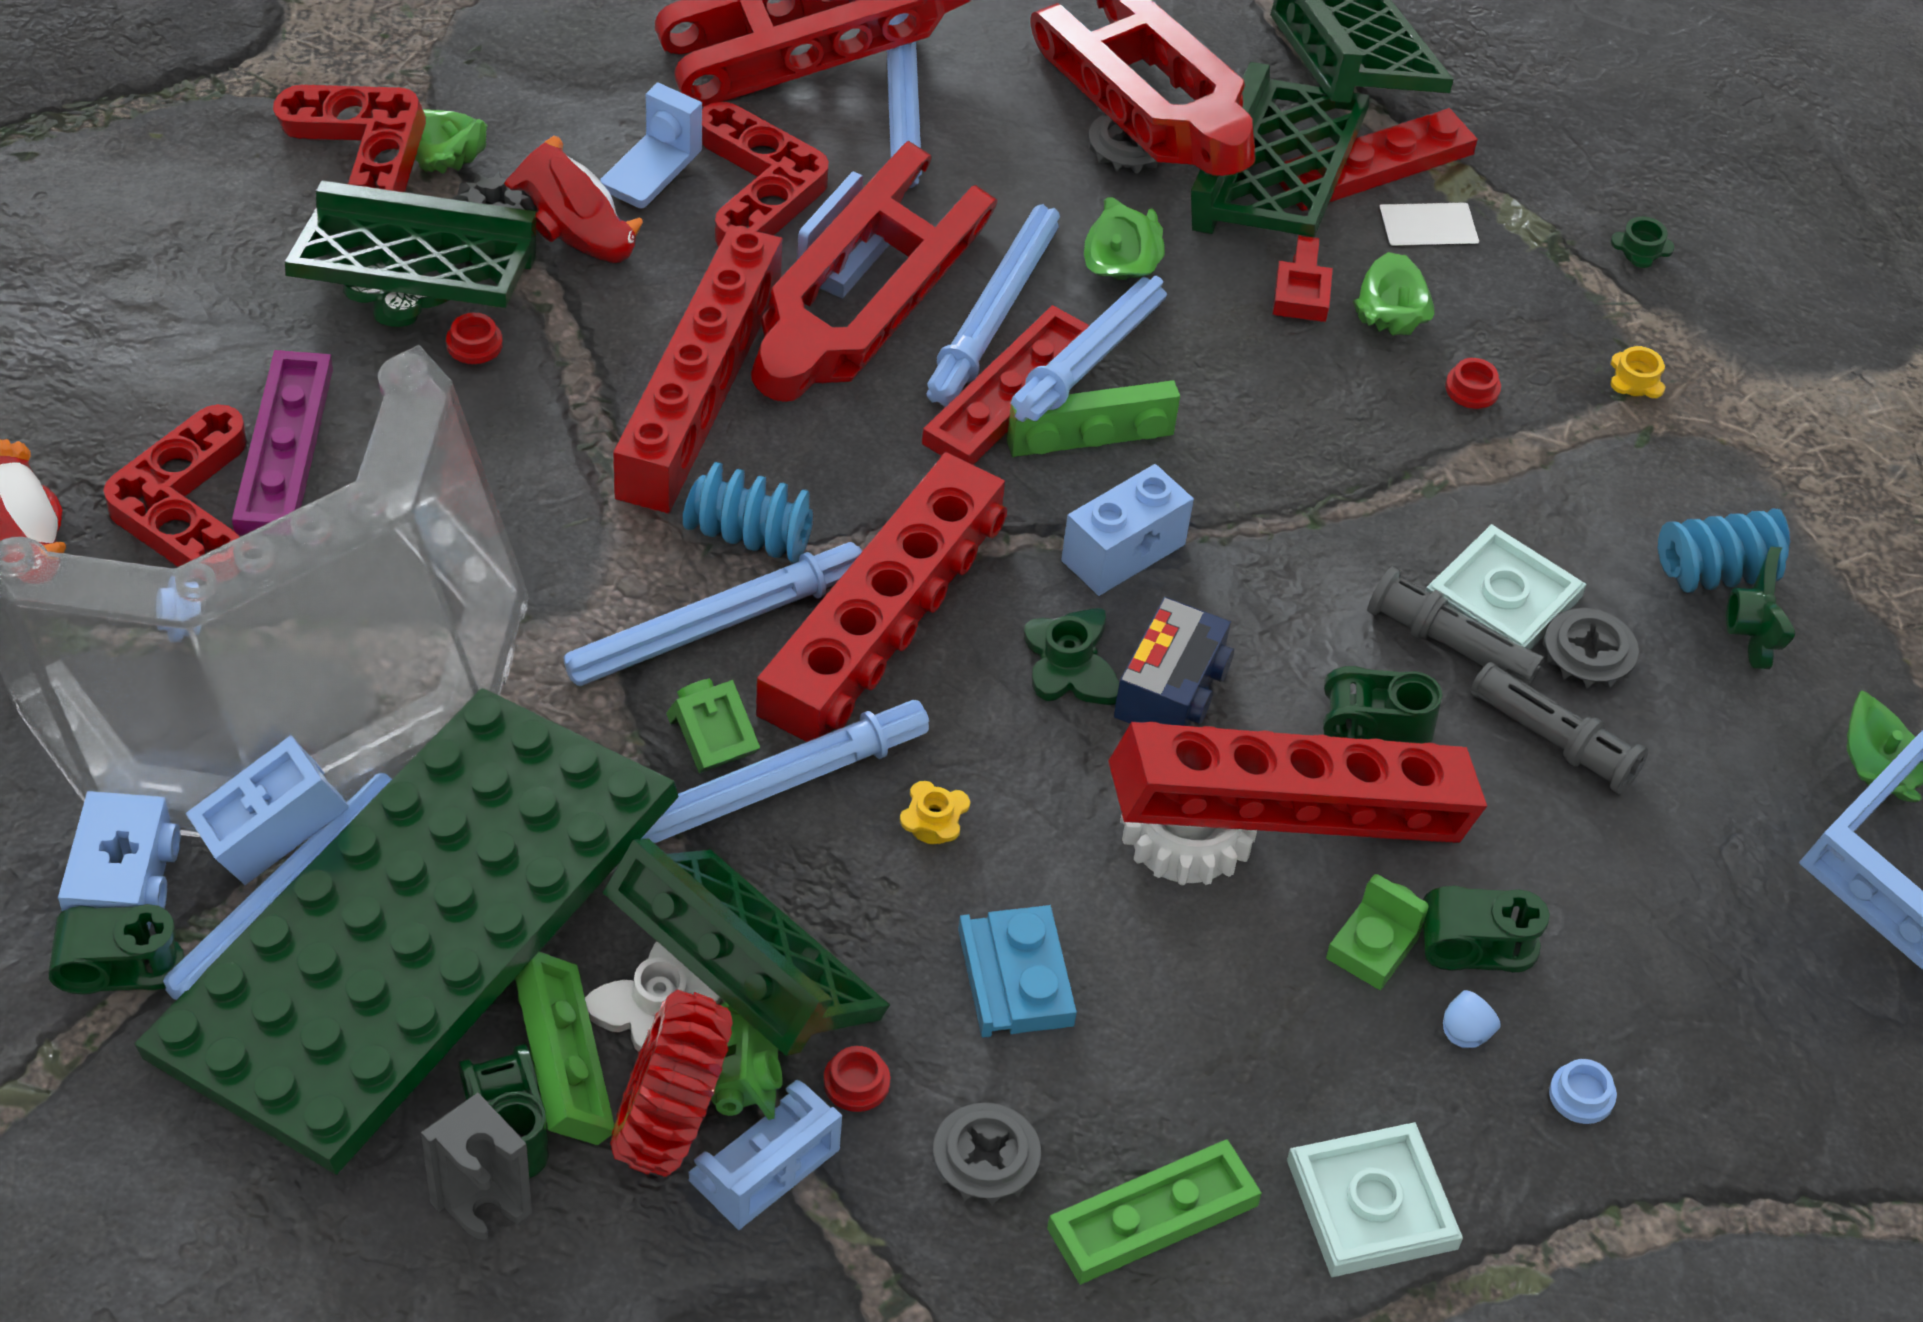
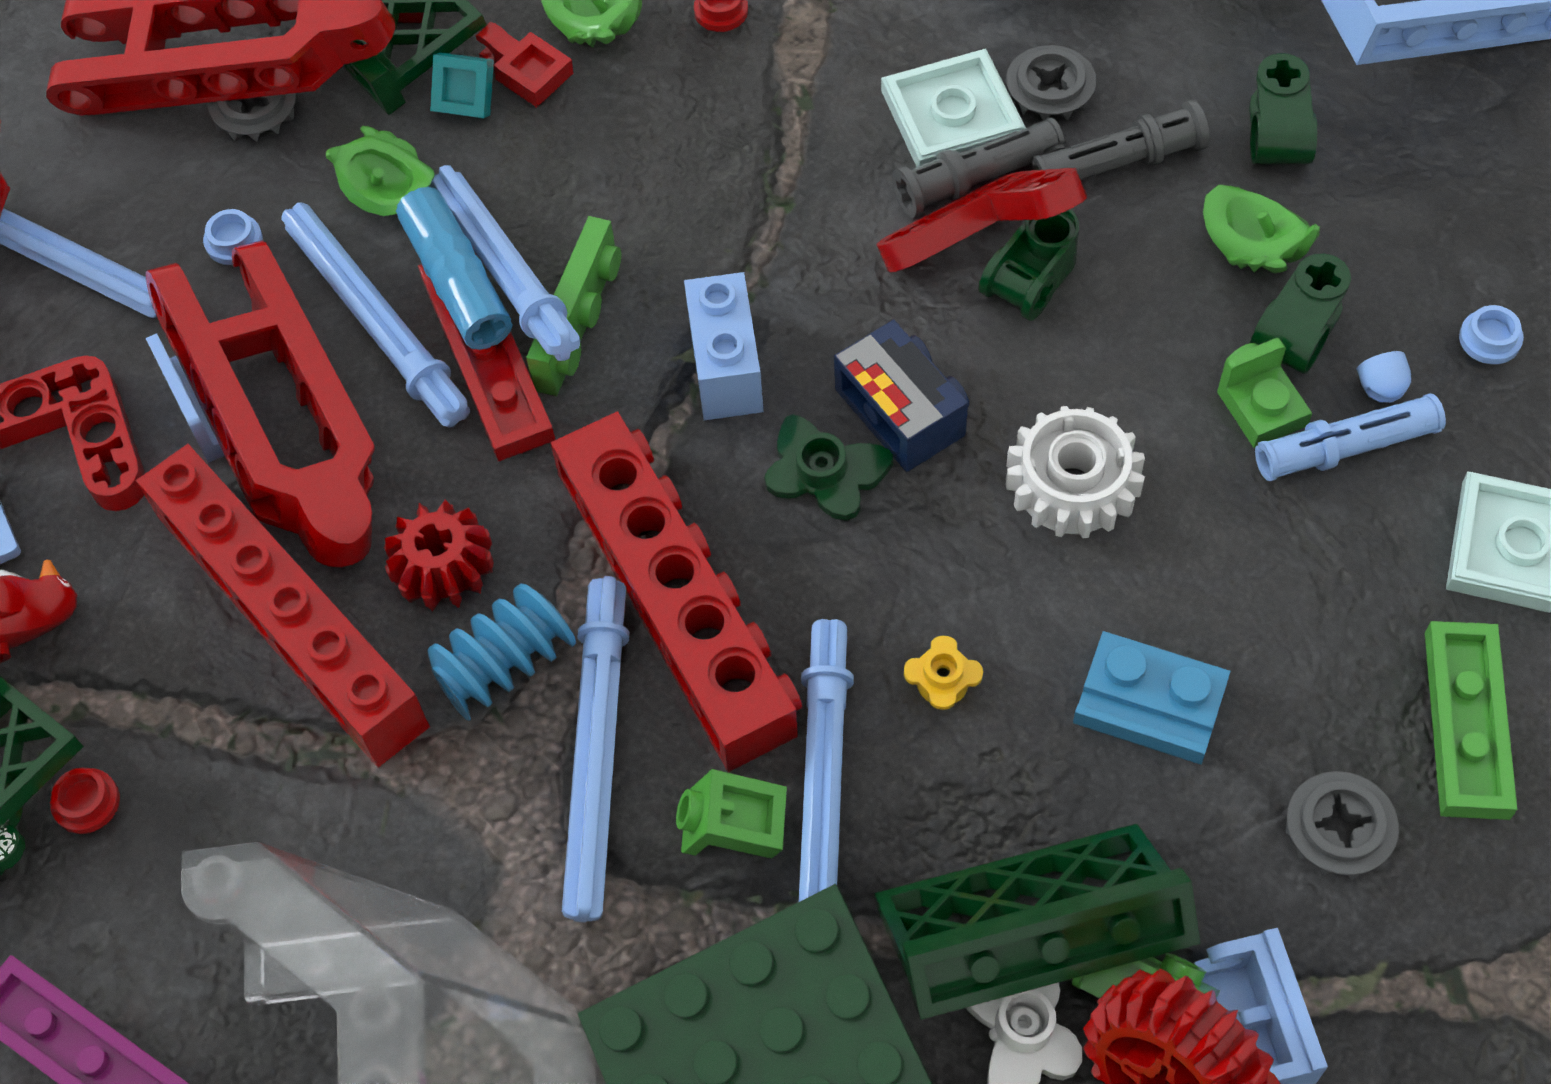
camera: 50 degrees left, 10 degrees up
(807, 441) = (461, 549): none -> red gear
(856, 1079) = (1217, 894): red plate -> none
(1001, 183) = (229, 230): none -> light blue plate
(1057, 318) = (454, 268): none -> dark azure axle
(1246, 253) = (462, 85): none -> teal plate
(1295, 783) = (1107, 371): red brick -> none
(1361, 1000) = (1326, 443): none -> light blue pin
(1399, 644) = (1010, 197): none -> red beam
(1551, 855) = (1256, 229): none -> bright green hat
(1694, 827) = (1282, 113): none -> dark green piece

